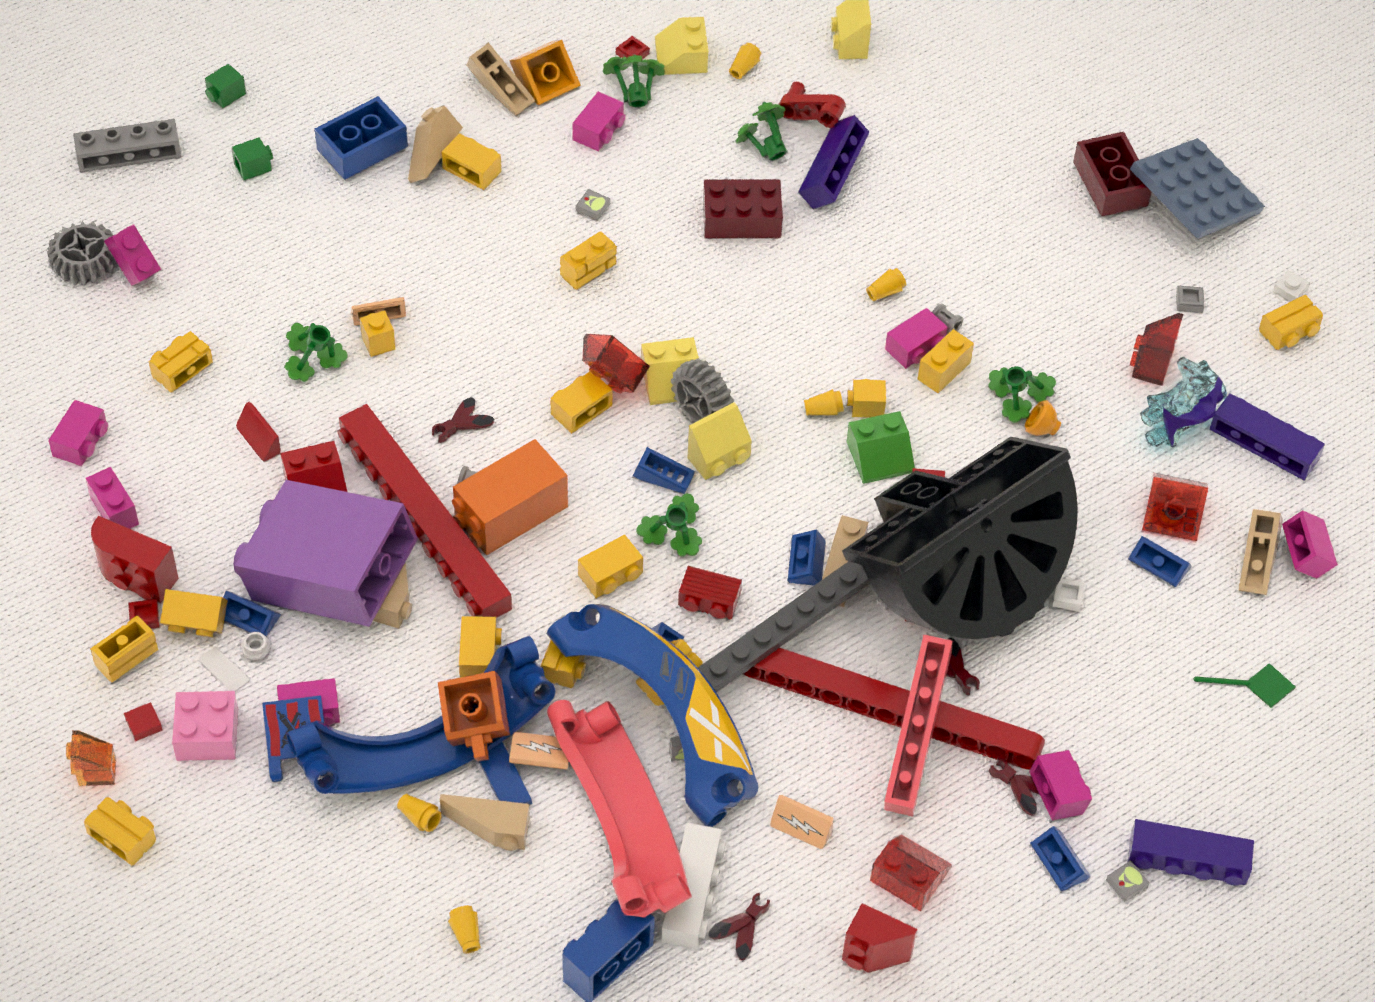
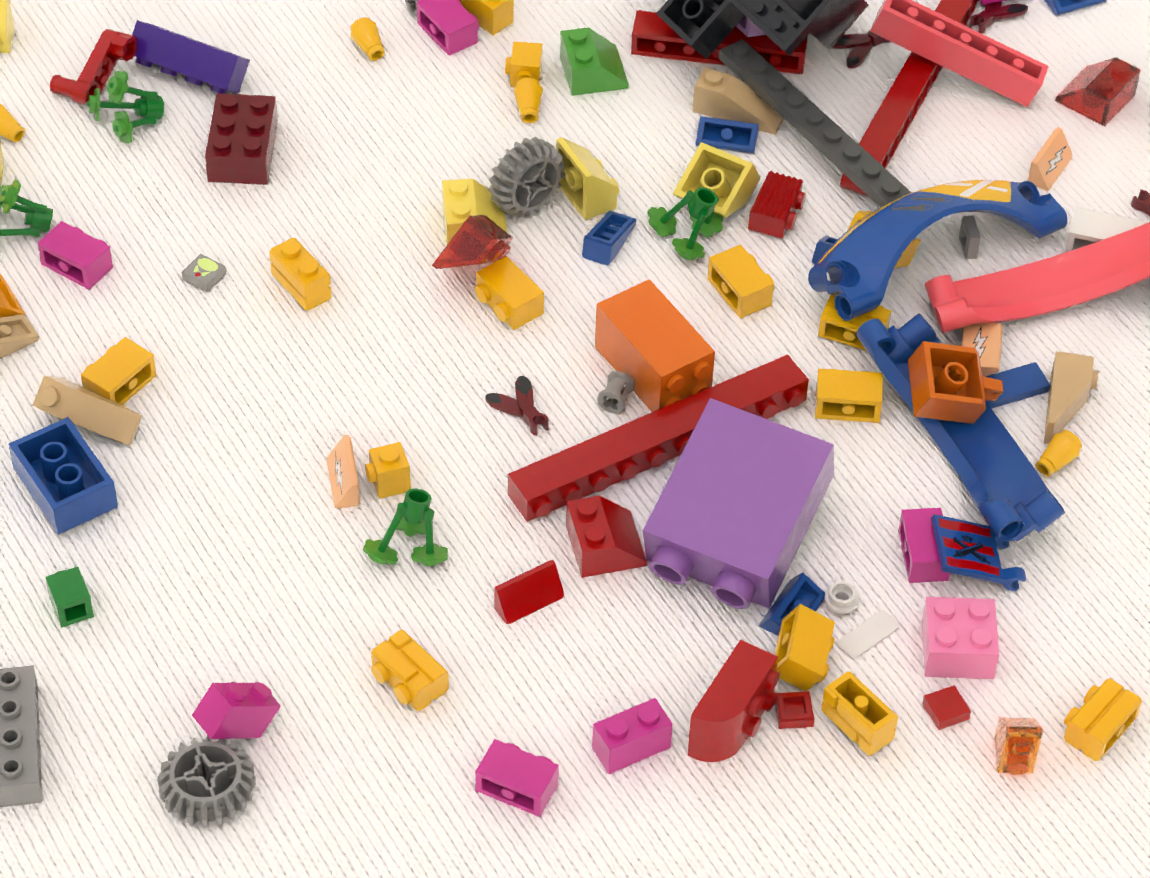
camera: 85 degrees left, 5 degrees down
(728, 543) = (724, 174): none -> light yellow slope

